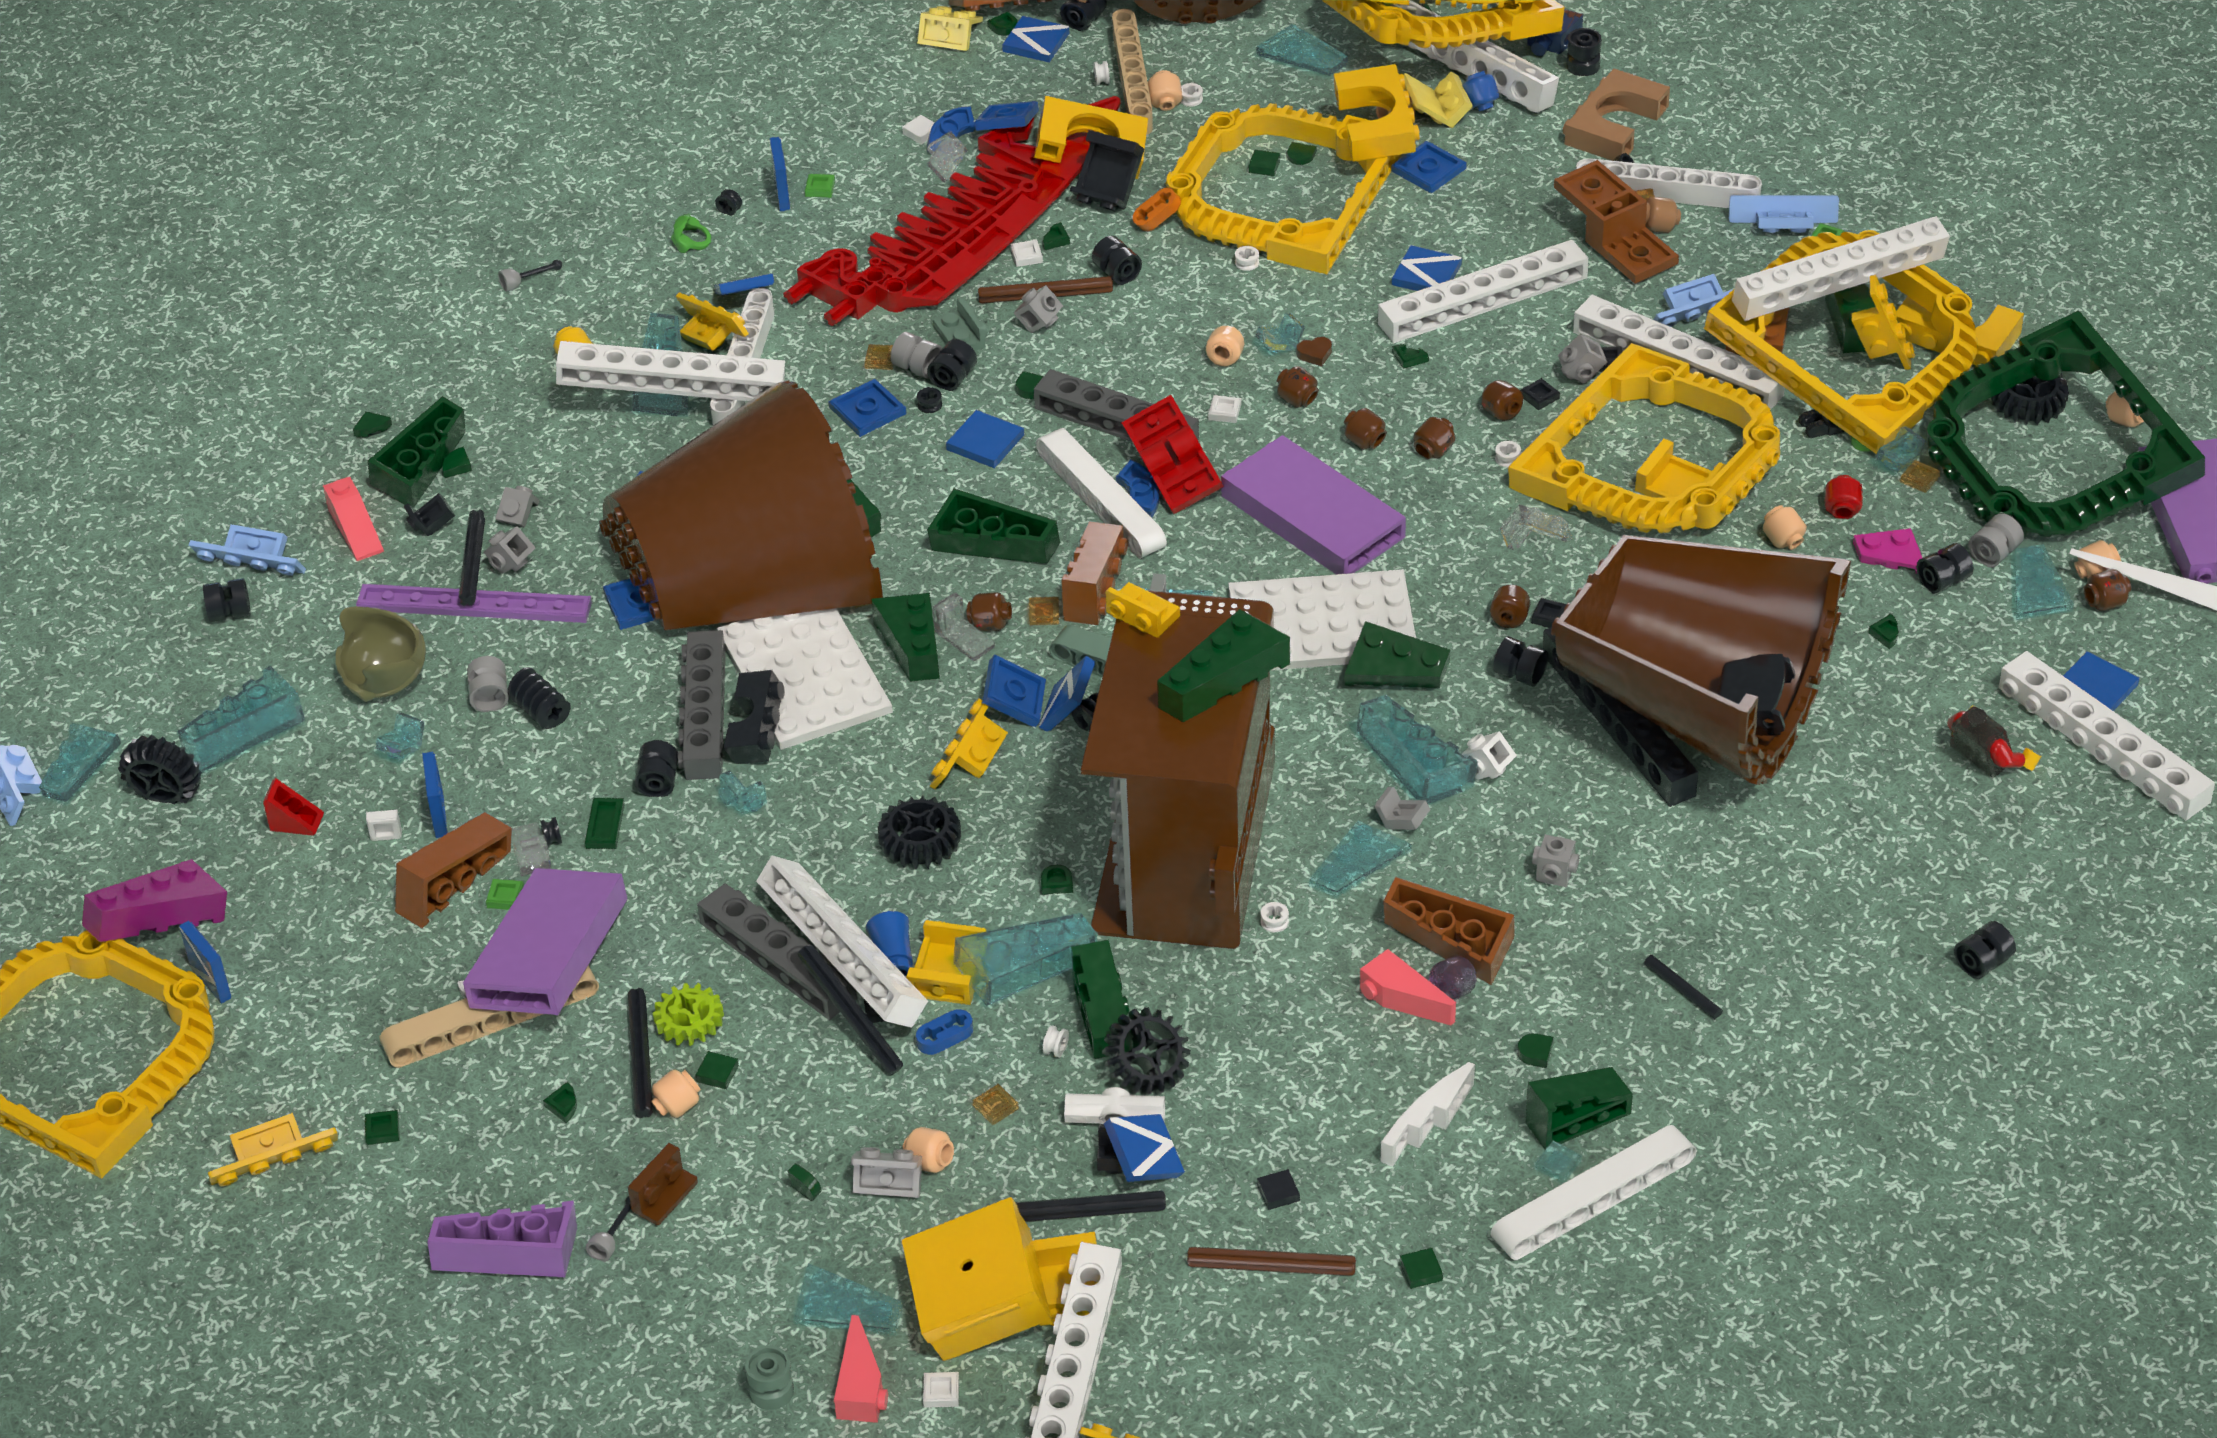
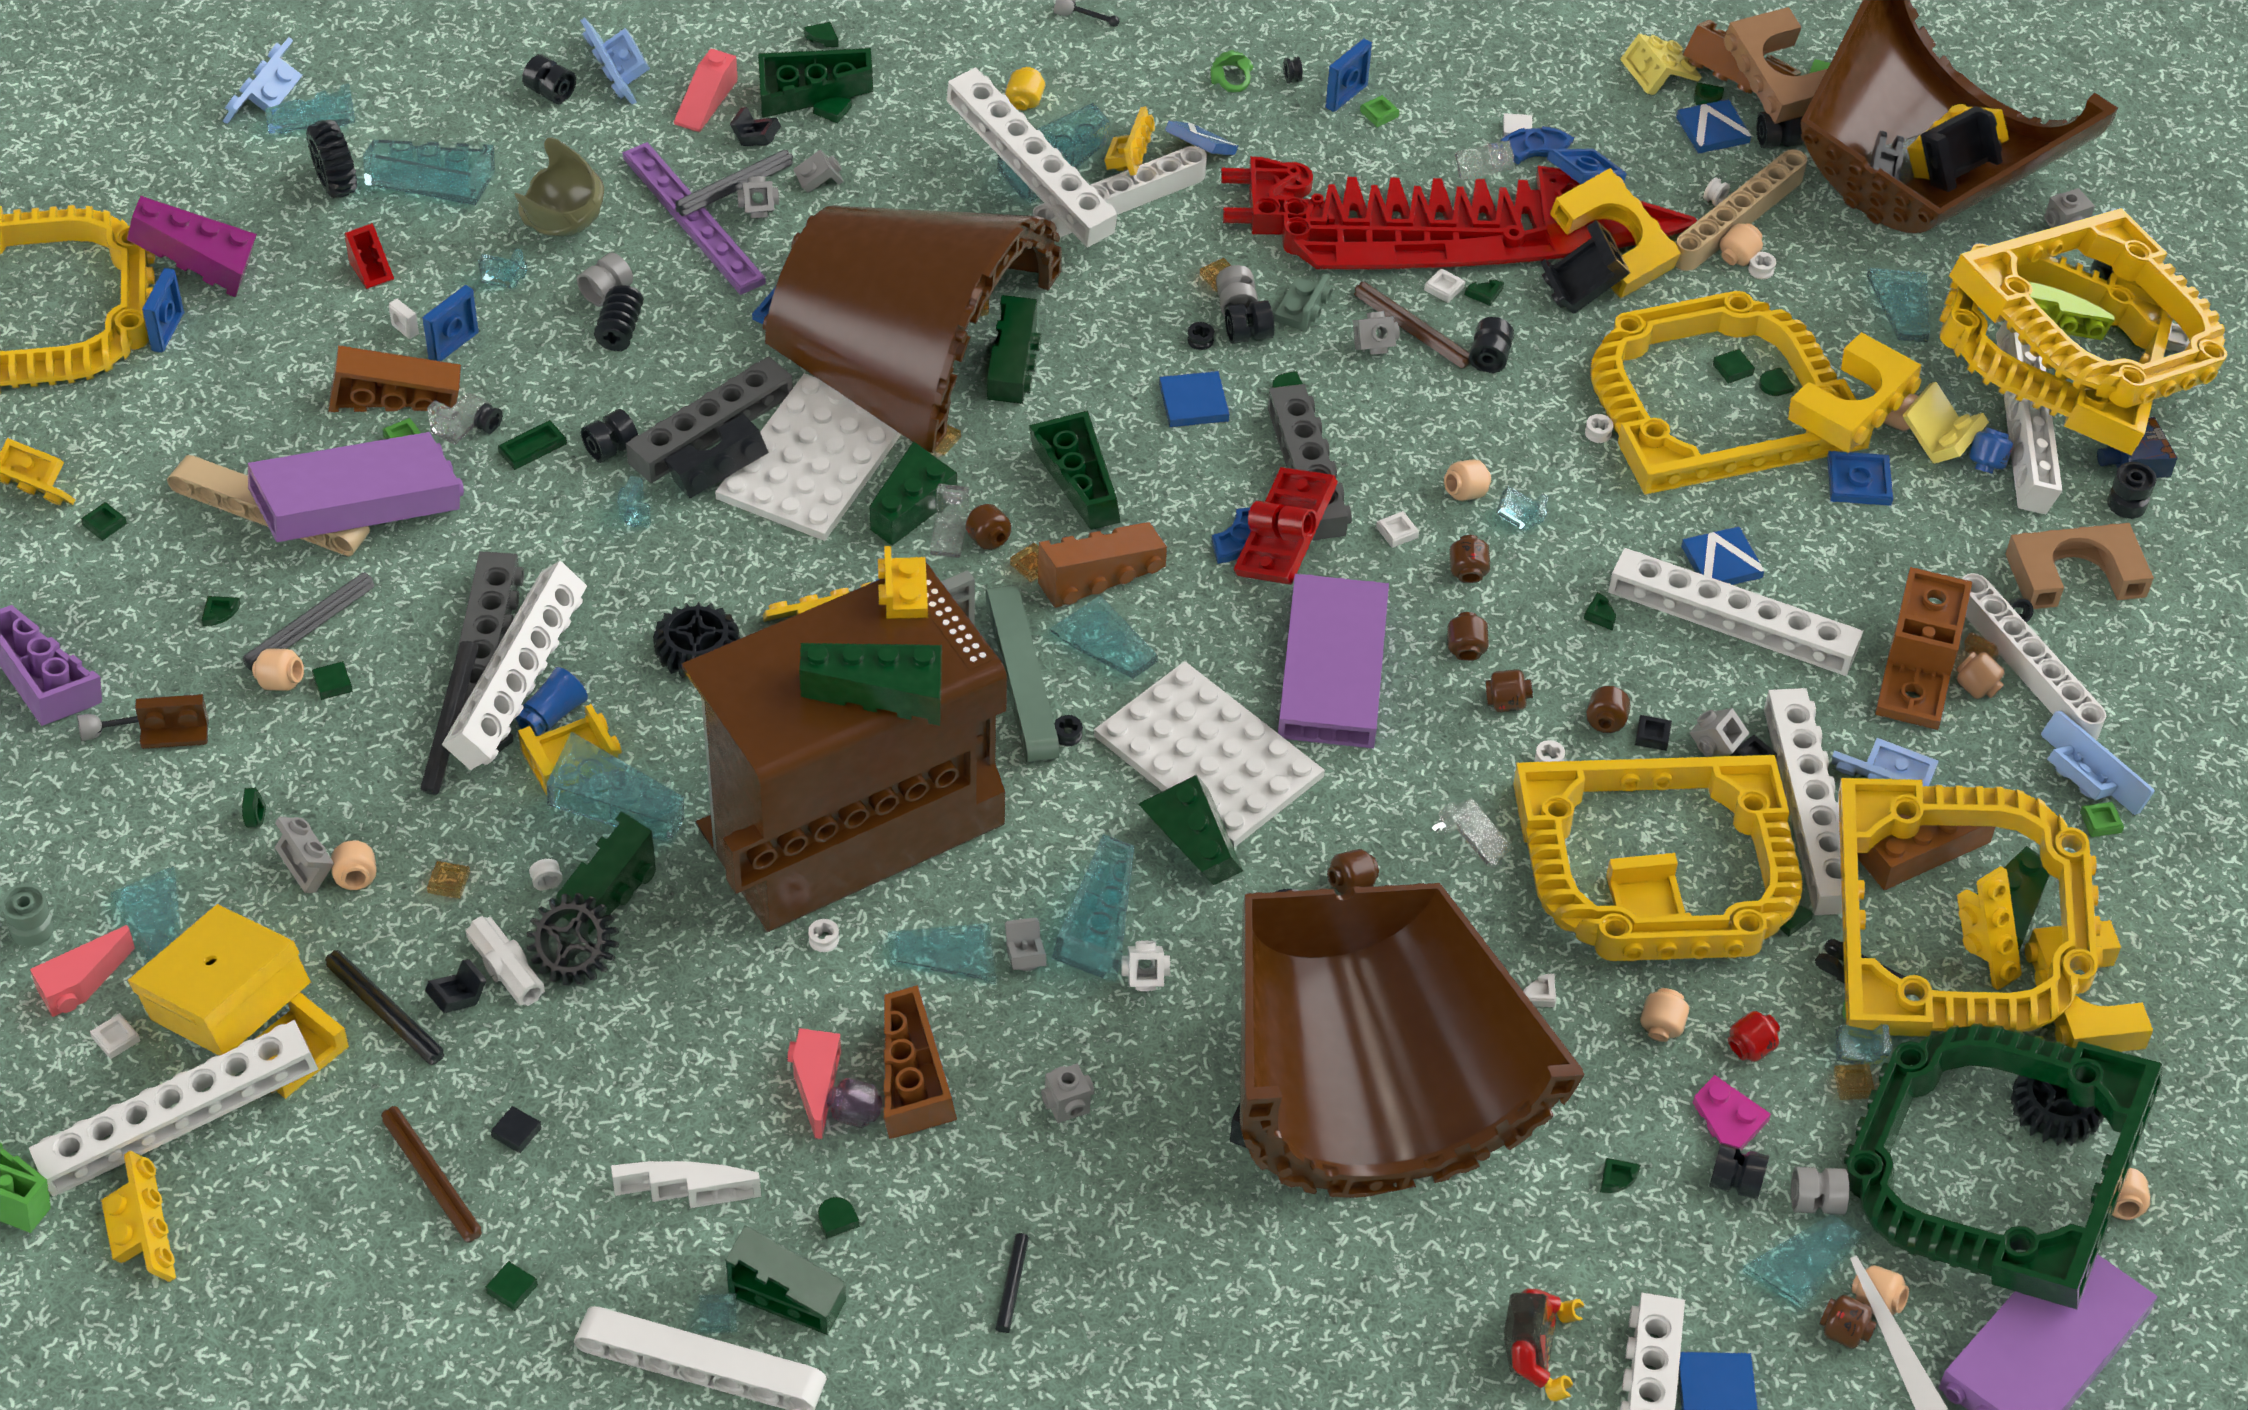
camera: 45 degrees right, 5 degrees up
(688, 1014) = (369, 623): lime gear -> none
(867, 407) = (1152, 304): blue tile -> none
(944, 1031) = (496, 796): blue beam -> none
(1100, 491) = (1203, 511): white beam -> none
(1144, 1147) = (466, 1004): blue tile -> none
(1156, 209) = (1582, 331): orange beam -> none
(1314, 351) = (1535, 545): reddish brown tile -> none
(1761, 677) = (1389, 1107): black piece -> none
(1840, 268) = (1999, 840): white brick -> none

